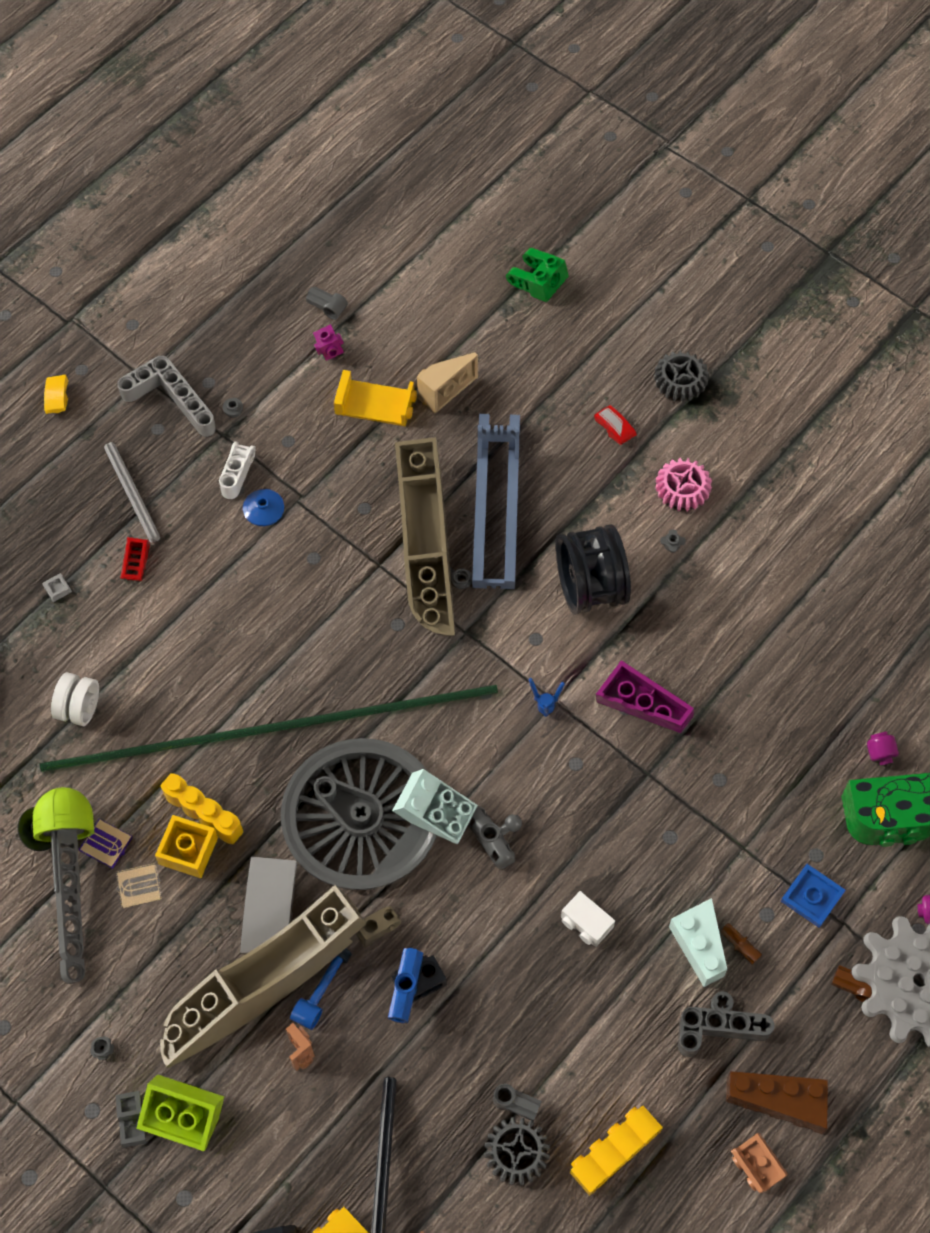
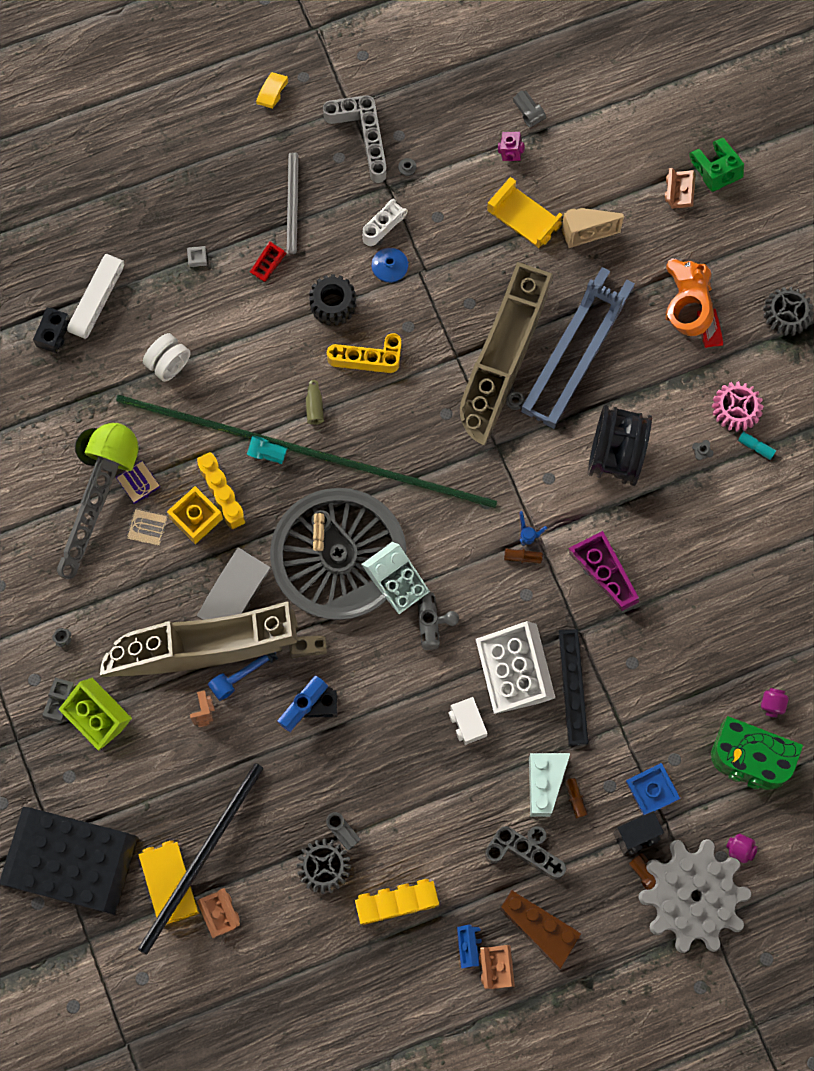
camera: 25 degrees right, 10 degrees up
(221, 550) = (329, 286): none -> black tyre
(224, 745) = (261, 448): none -> teal piece
(256, 676) = (314, 404): none -> olive piece
(283, 602) = (364, 354): none -> yellow beam
(329, 800) = (318, 534): none -> tan axle
(515, 311) = (680, 188): none -> nougat bracket
(551, 726) = (523, 556): none -> reddish brown axle
(576, 389) = (693, 287): none -> orange animal
(605, 841) = (515, 667): none -> white slope
(675, 833) = (573, 687): none -> black tile
(716, 1157) = (467, 946): none -> blue plate
(726, 513) = (754, 444): none -> teal piece
(826, 945) = (639, 833): none -> black brick

